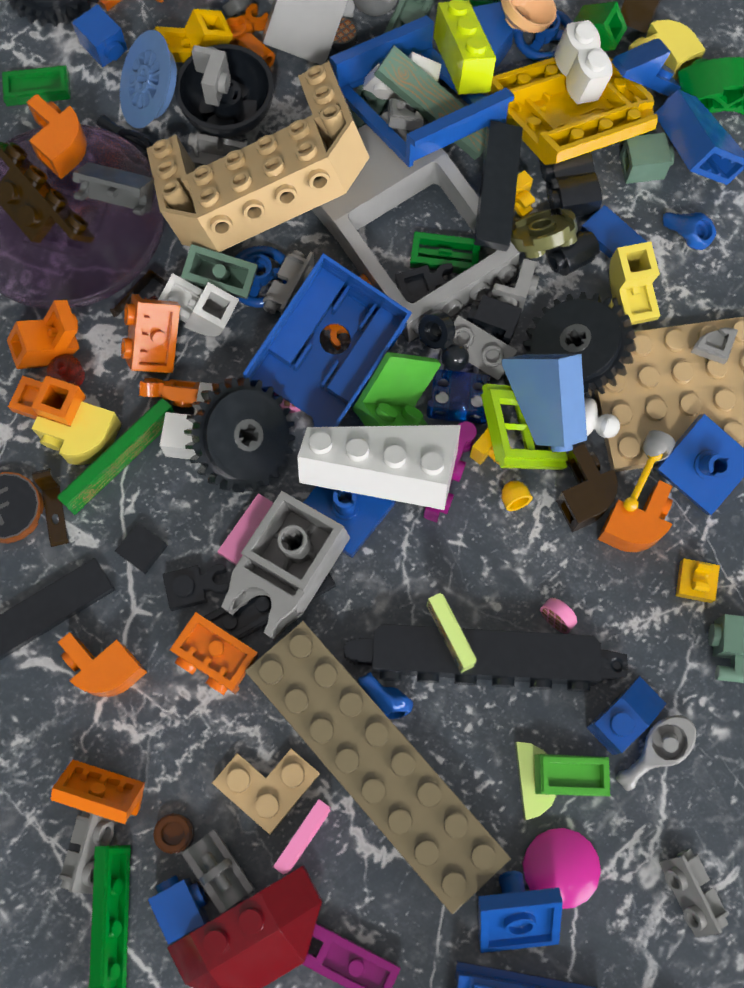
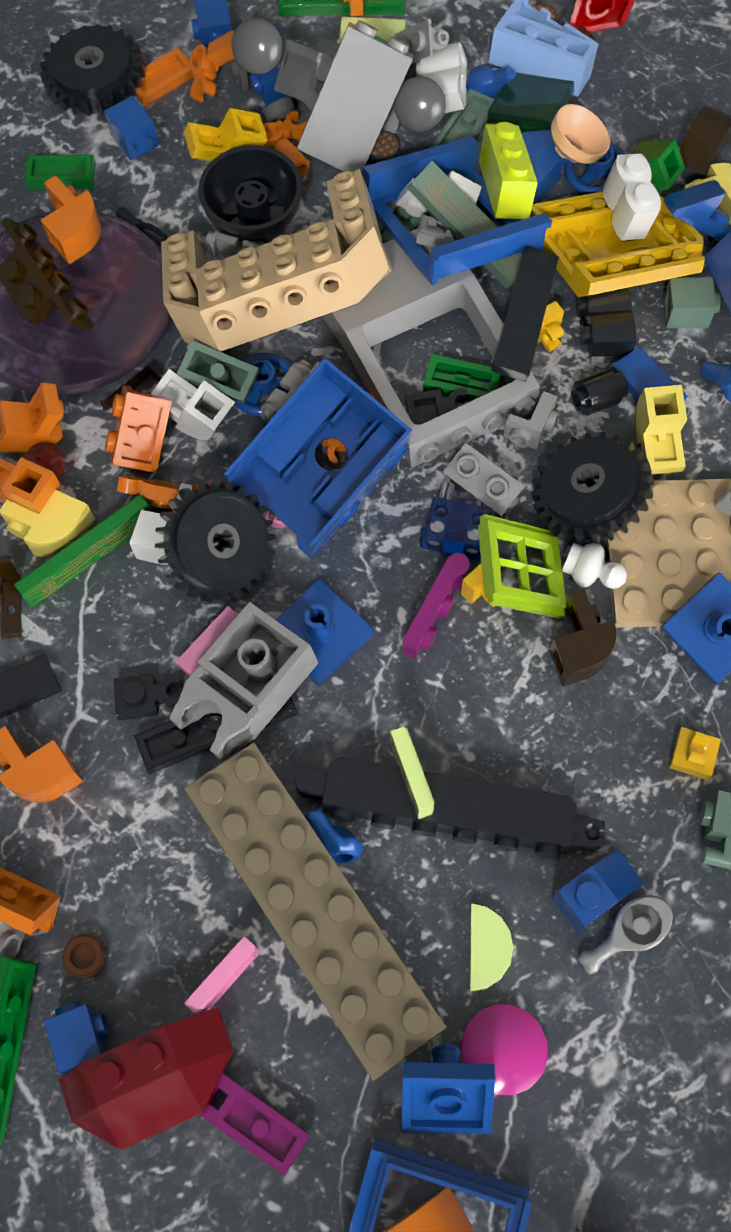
camera: 10 degrees right, 5 degrees down
(115, 187) = (121, 276): dark grey hinge -> none
(141, 548) = (95, 650): black tile -> none
(147, 79) = (173, 174): medium blue piece -> none
(213, 653) = (154, 767): orange bracket -> none
(216, 72) = (241, 169): light grey bracket -> none
(218, 871) = (124, 1000): flat silver hips -> none
(267, 798) = (196, 930): tan plate -> none
(382, 461) = (361, 582): white wedge -> none
(395, 390) = (384, 515): bright green bracket -> none
(454, 355) = (442, 456): black plate -> none
(495, 318) = (507, 450): black brick -> none
(515, 495) = (504, 639): yellow hinge -> none
(543, 232) = (569, 366): olive plate -> none
(550, 397) = (552, 537): medium blue slope -> none
(559, 615) = (535, 771): bright pink tile -> none
(571, 775) = (528, 947): bright green tile -> none
(640, 528) = (632, 689): orange brick -> none
(657, 448) = (665, 603): hinge -> none
(700, 909) = (655, 1117): light grey hinge -> none

